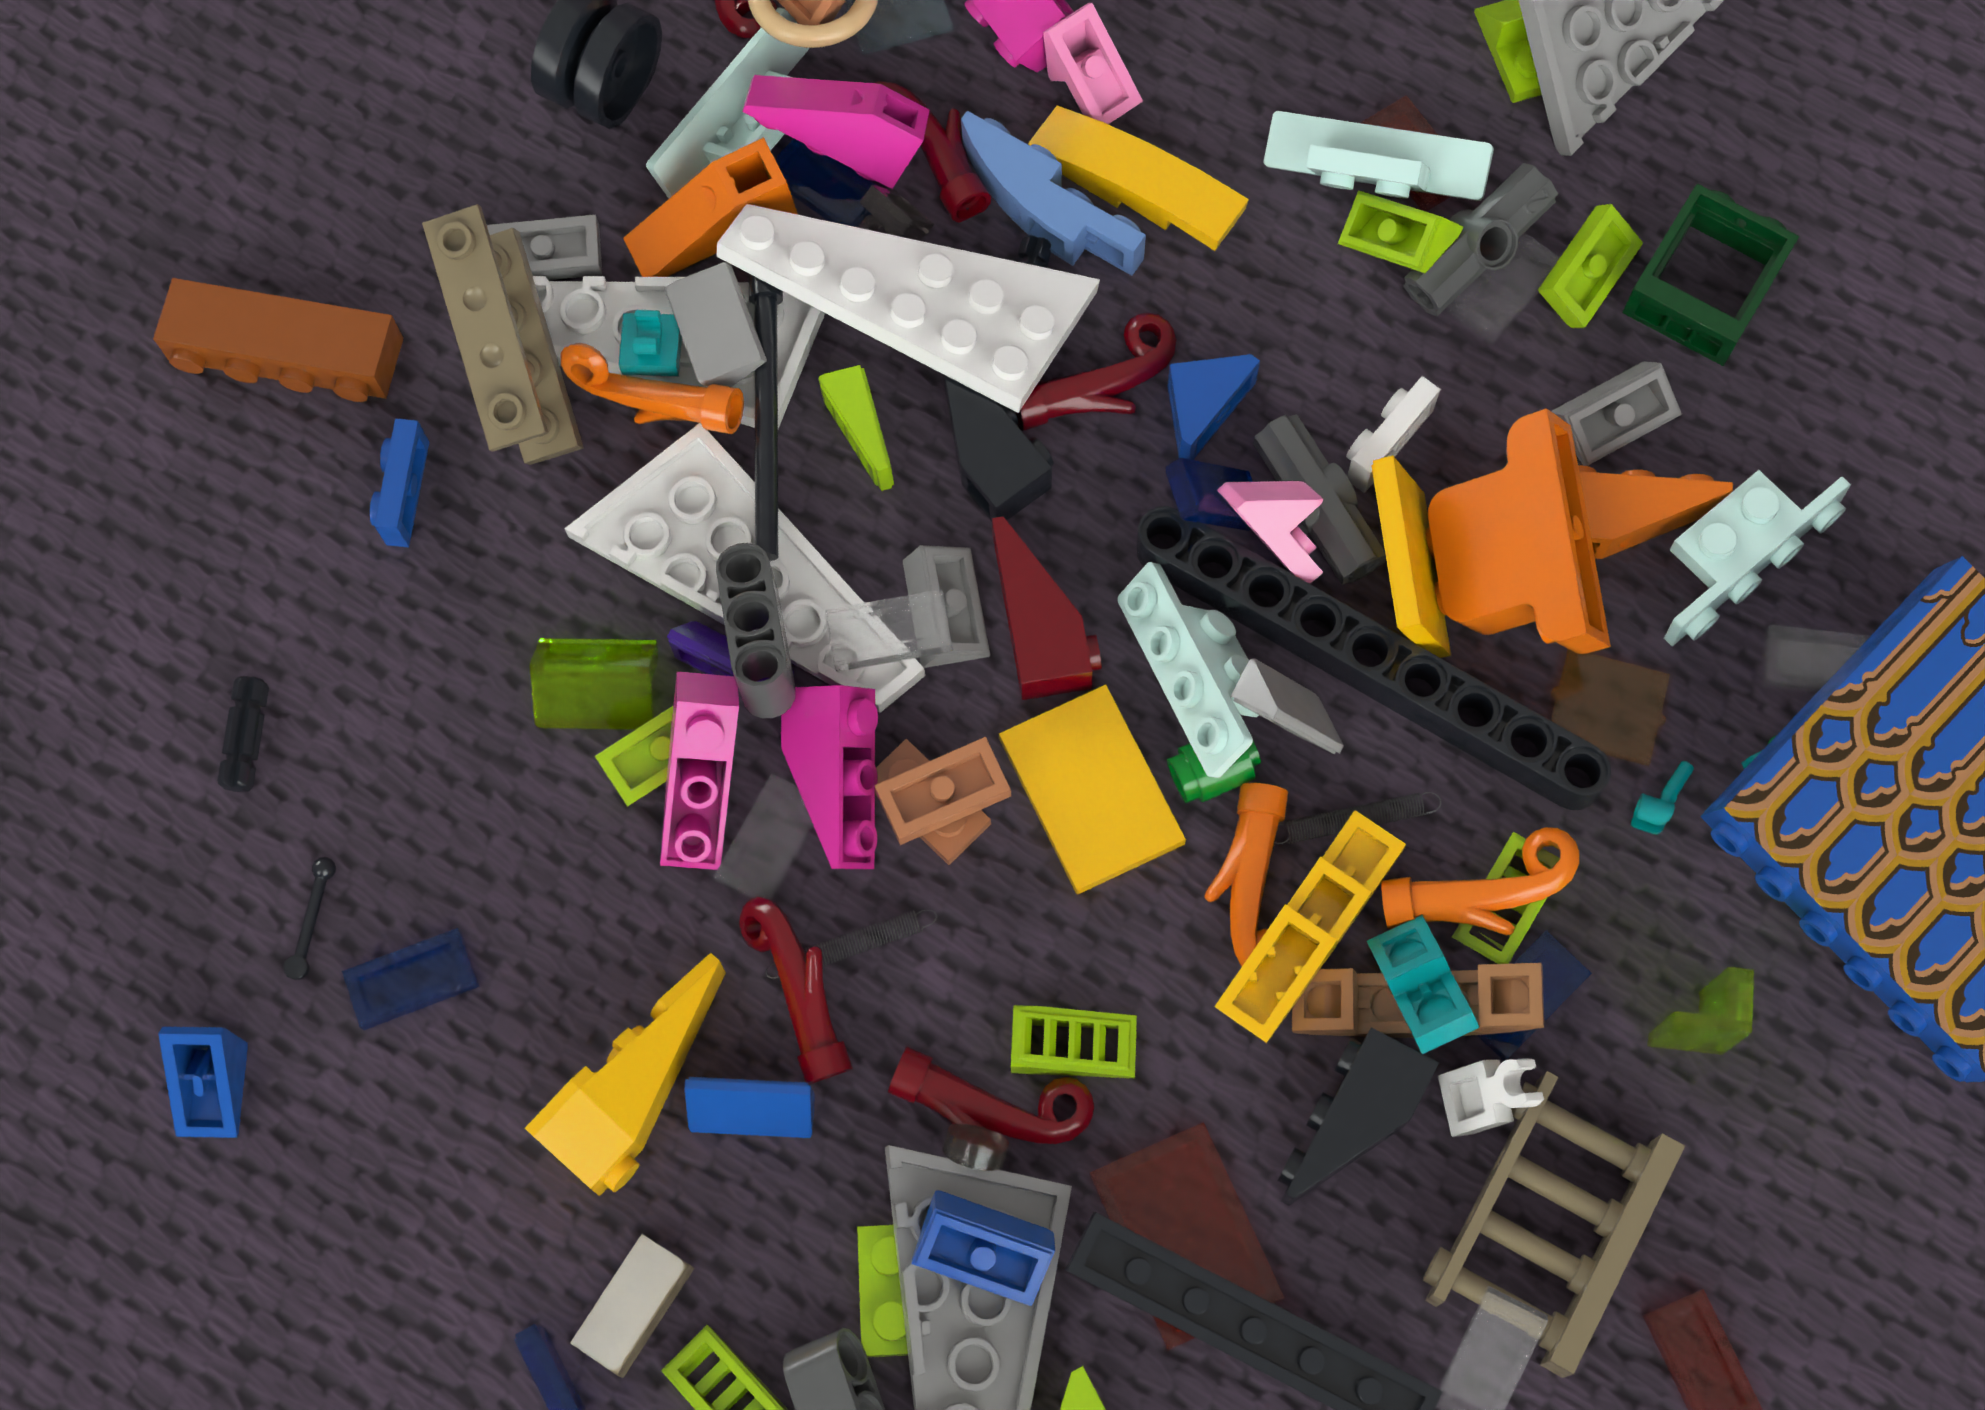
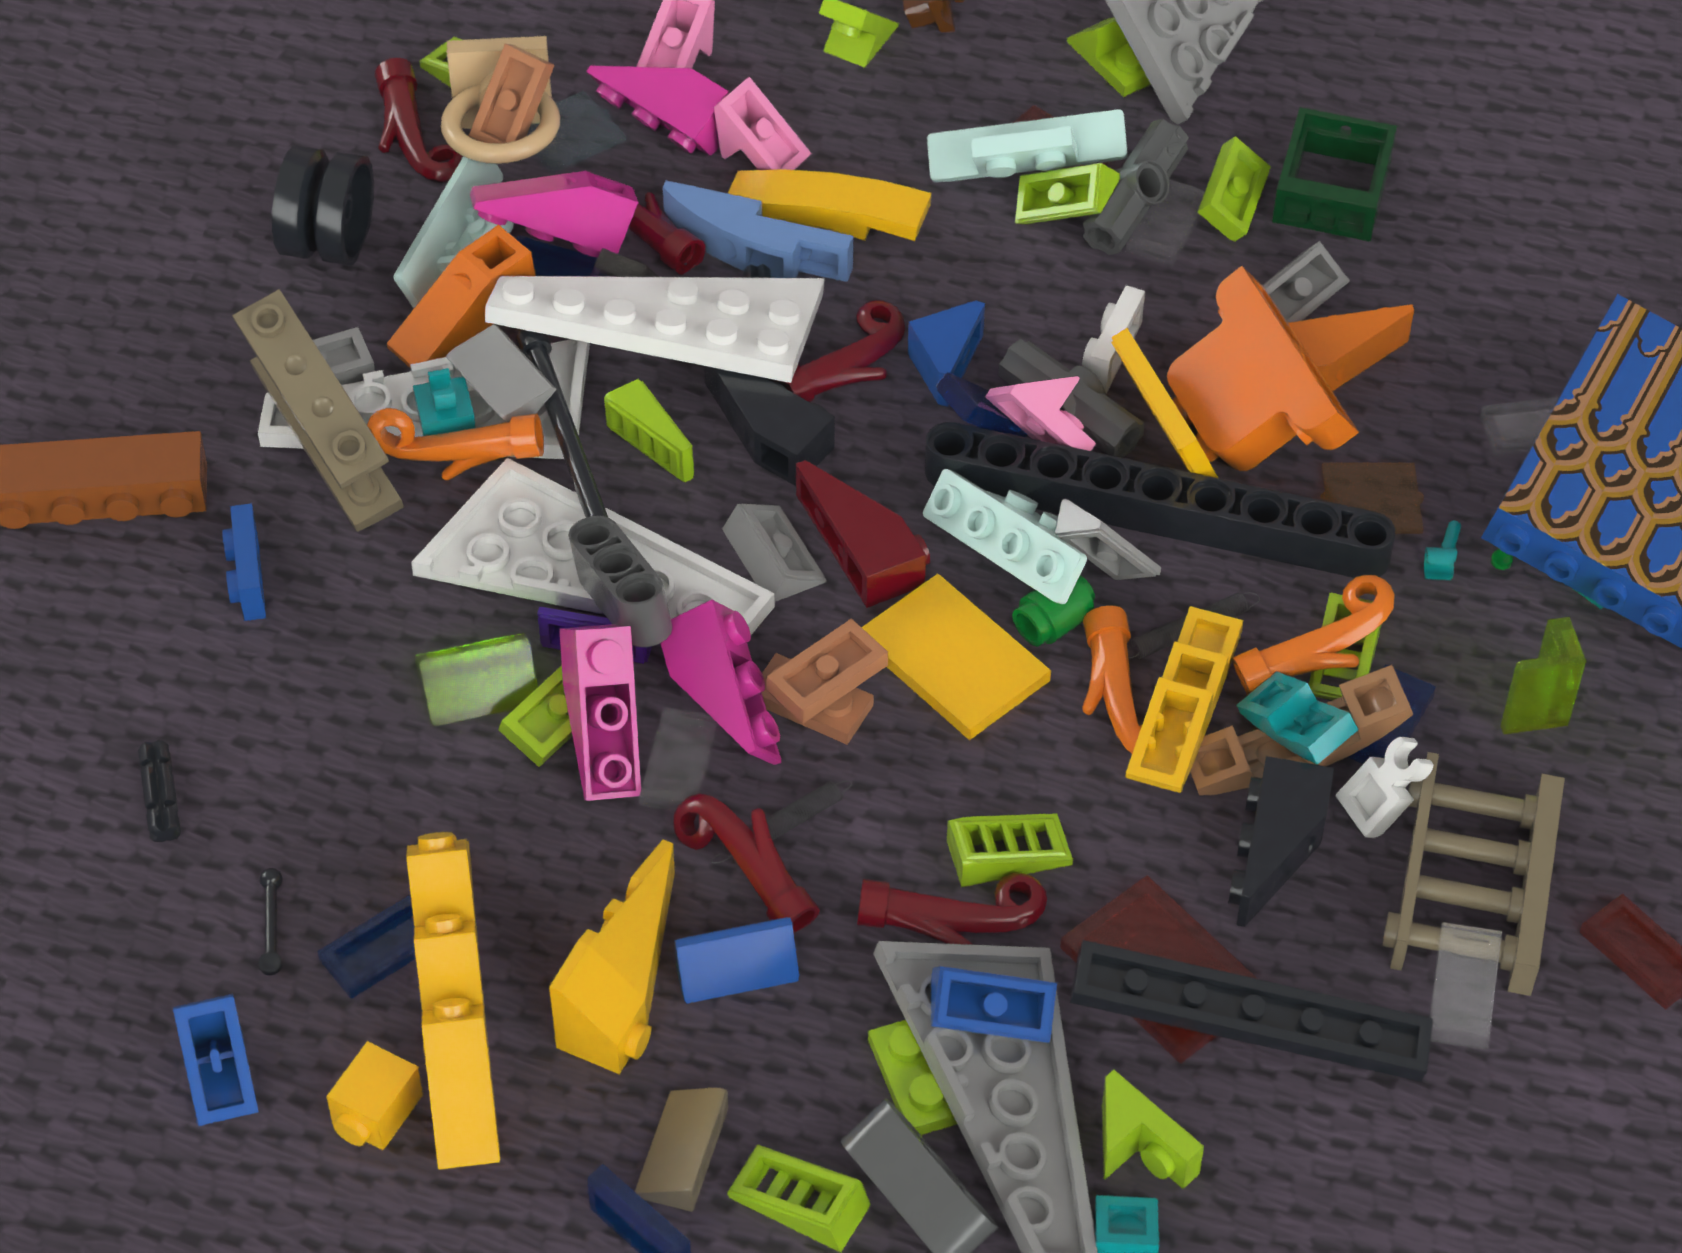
camera: 20 degrees left, 20 degrees down
(343, 1165) = (374, 1097): none -> yellow brick
(437, 1073) = (452, 1001): none -> yellow arch
(889, 630) = (735, 567): clear tile -> none
(975, 1147) = (954, 931): clear smoke tile -> none
(1741, 539) = (1437, 348): light aqua bracket -> none

